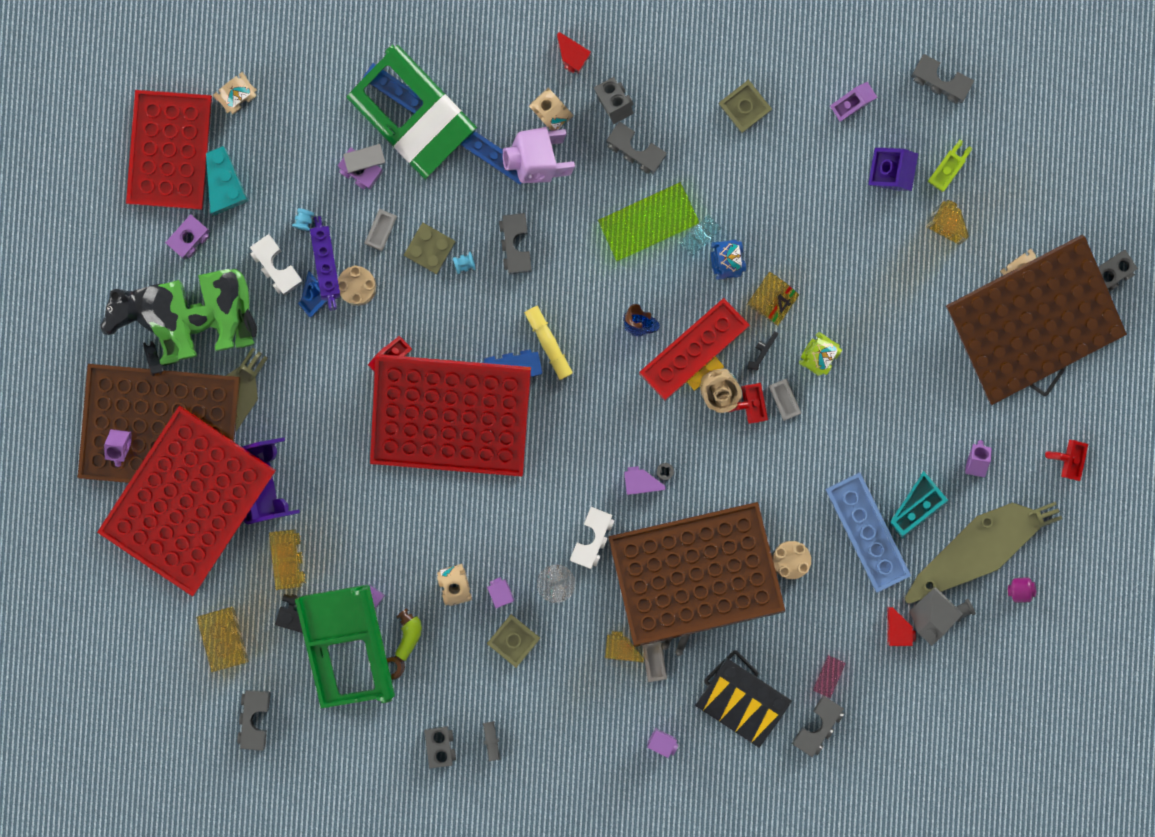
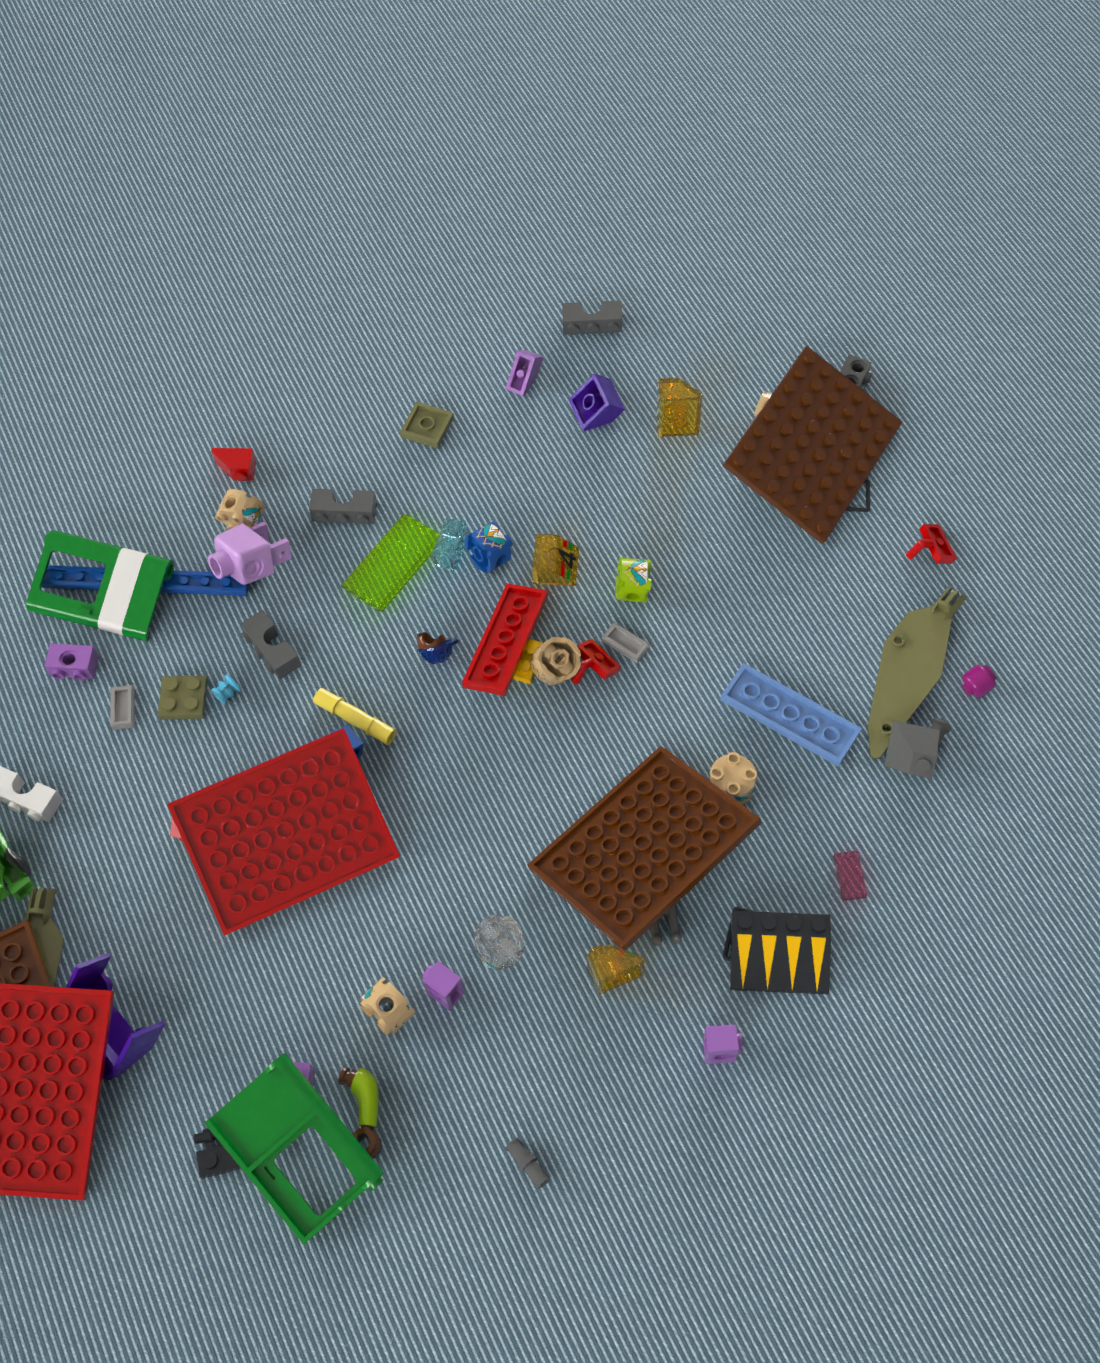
camera: 30 degrees left, 25 degrees down
(222, 639) = (142, 1231): clear yellow slope -> none
(252, 737) = (217, 1286): dark grey arch -> none
(286, 559) = (176, 1090): clear yellow slope -> none
(303, 219) = (33, 738): medium azure bush -> none
(311, 296) = (81, 802): blue slope -> none
(325, 263) = (73, 759): dark purple plate -> none
(357, 285) = (120, 767): tan brick -> none
(364, 158) = (68, 643): light grey tile -> none
(434, 747) = (465, 1209): dark grey brick -> none
(513, 640) = (488, 1033): olive plate -> none
(587, 554) = (508, 857): white arch -> none
(614, 100) = (297, 475): dark grey brick -> none
(640, 481) = (530, 792): medium lavender slope -> none
(654, 662) = (658, 968): light grey tile -> none
(659, 470) = (551, 773): dark grey bush -> none
(764, 349) = (575, 627): black piece -> none
(811, 741) = (876, 910): dark grey arch -> none
(899, 630) = (886, 785): red slope -> none
(918, 506) = (823, 659): teal wedge -> none
(948, 167) = (646, 379): lime hinge -> none
(978, 460) = (850, 590): medium lavender piece -> none

